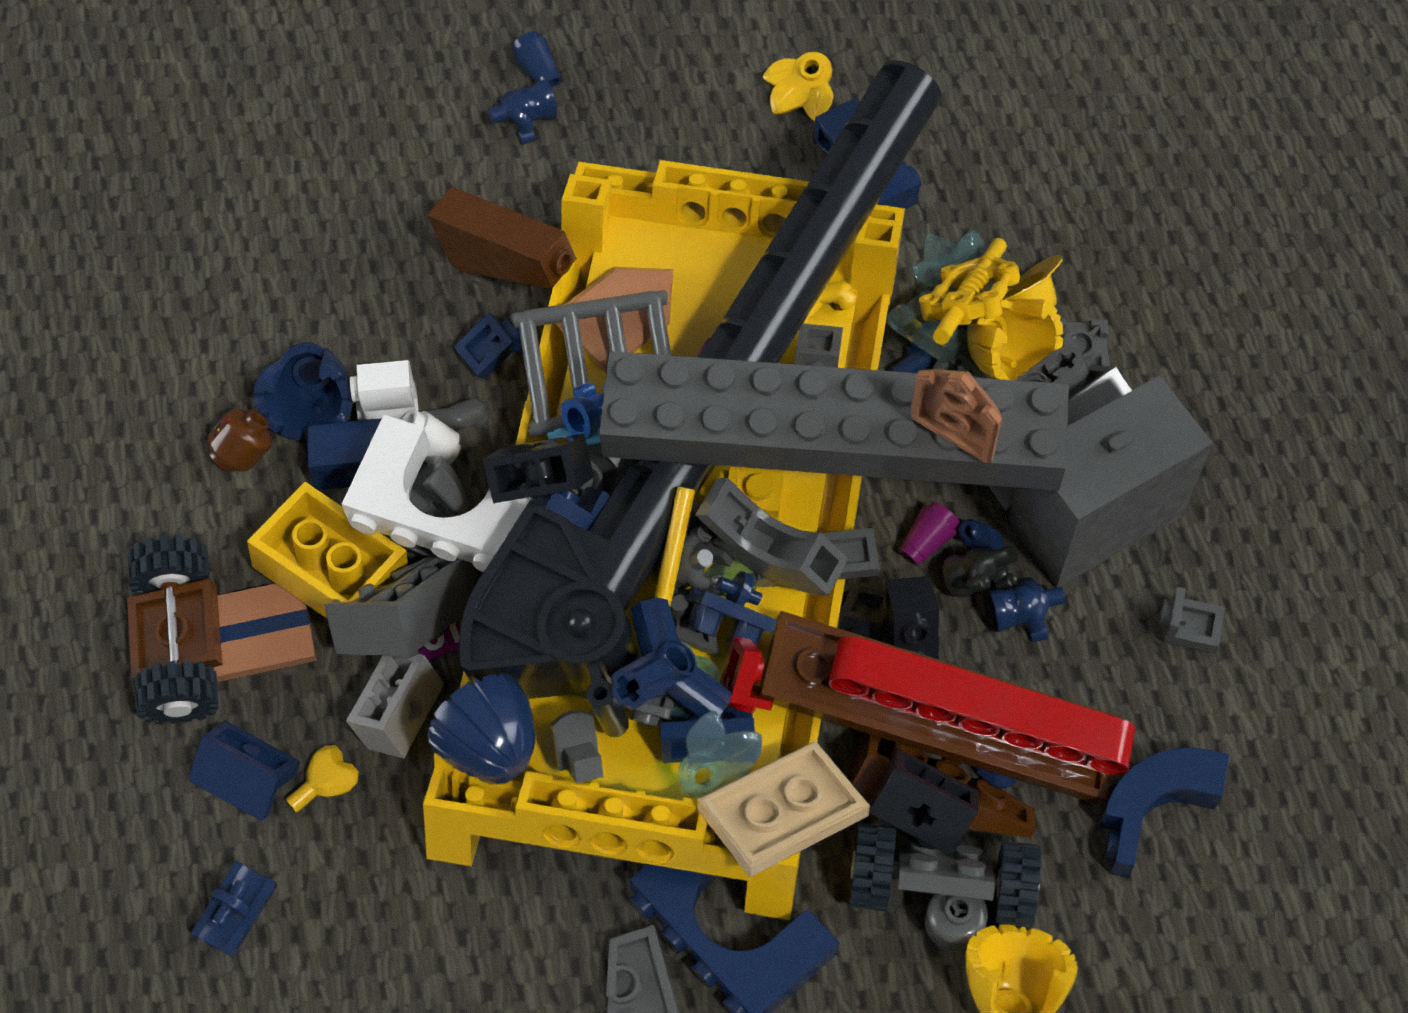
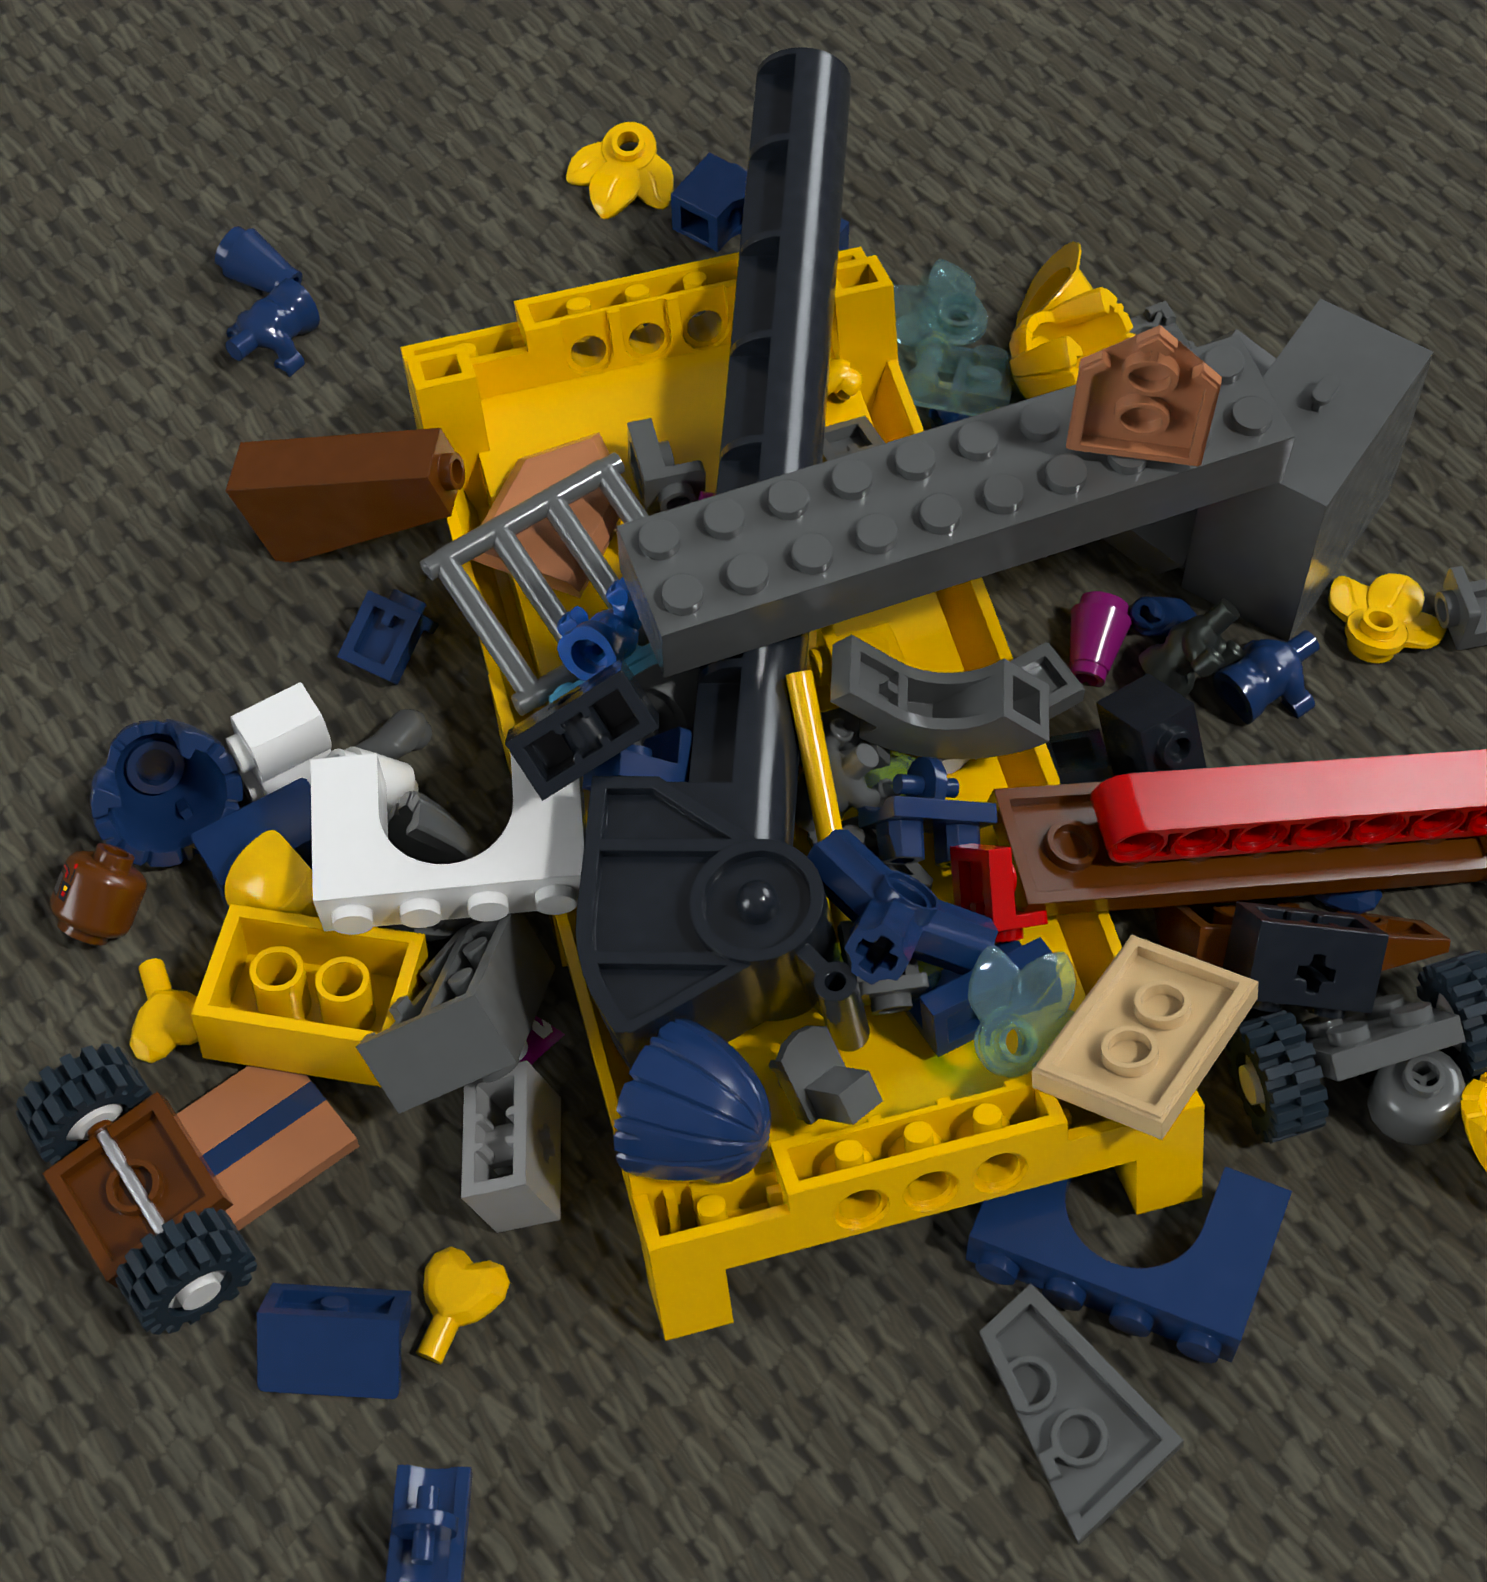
camera: 25 degrees left, 5 degrees down
(235, 536) = (163, 1018): none -> yellow rock
(333, 473) = (271, 877): none -> yellow helmet
(689, 316) = (657, 478): none -> dark grey bracket
(969, 300) = (997, 333): yellow bar -> none
(1131, 592) = (1383, 616): none -> yellow plate

